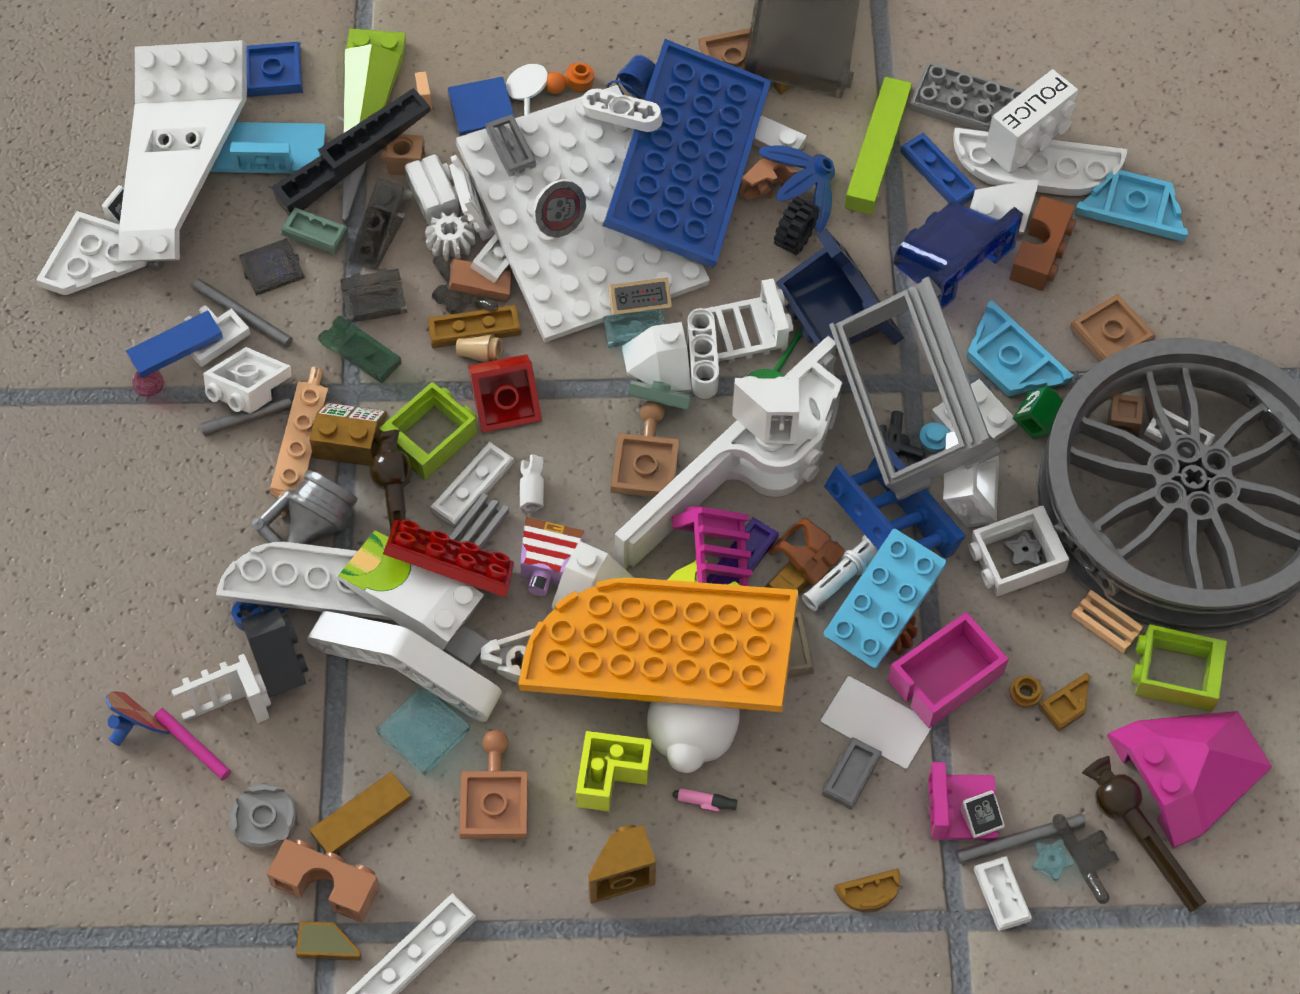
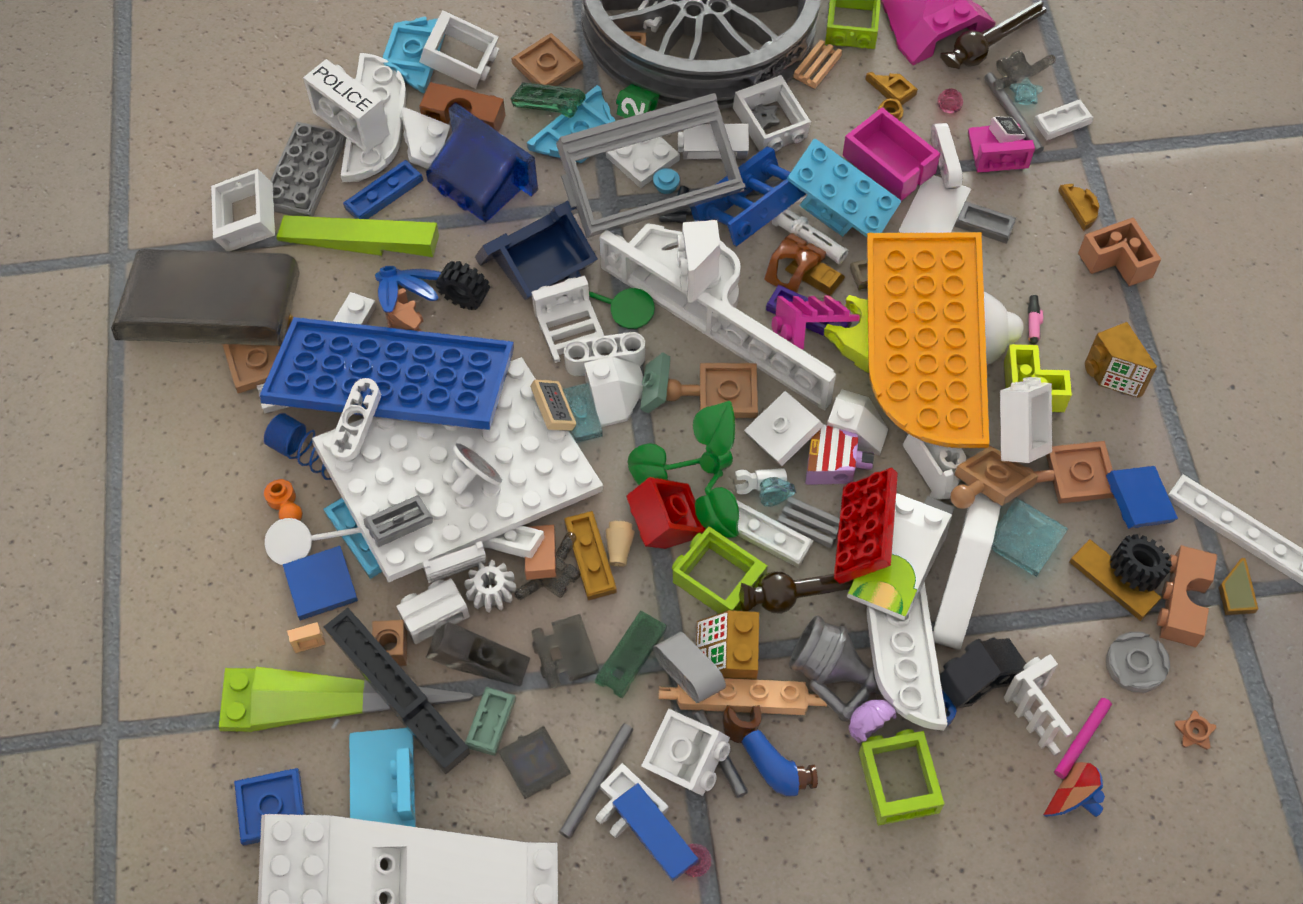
camera: 95 degrees left, 0 degrees up
(175, 850) = (1195, 722): none -> nougat plate
(182, 586) = (905, 808): none -> lime window
(211, 453) = (777, 771): none -> blue piece
(242, 533) = (870, 718): none -> lavender hair
(327, 385) = (689, 667): none -> light grey beam
(386, 825) = (1127, 563): none -> black tyre
(446, 854) = (1141, 497): none -> blue tile
(486, 692) = (992, 477): none -> medium nougat plate
(513, 490) = (775, 491): none -> clear light blue tile
(519, 739) = (1026, 420): none -> white window
(555, 434) = (715, 429): none -> green plant
(585, 505) = (783, 428): none -> white plate
(788, 913) = (1123, 247): none -> nougat brick
(911, 41) = (248, 230): none -> white window
(950, 739) = (948, 160): none -> white beam
(1039, 755) = (950, 101): none -> clear pink plate
(1052, 322) = (548, 98): none -> clear green plate
(1132, 211) = (468, 34): none -> white window

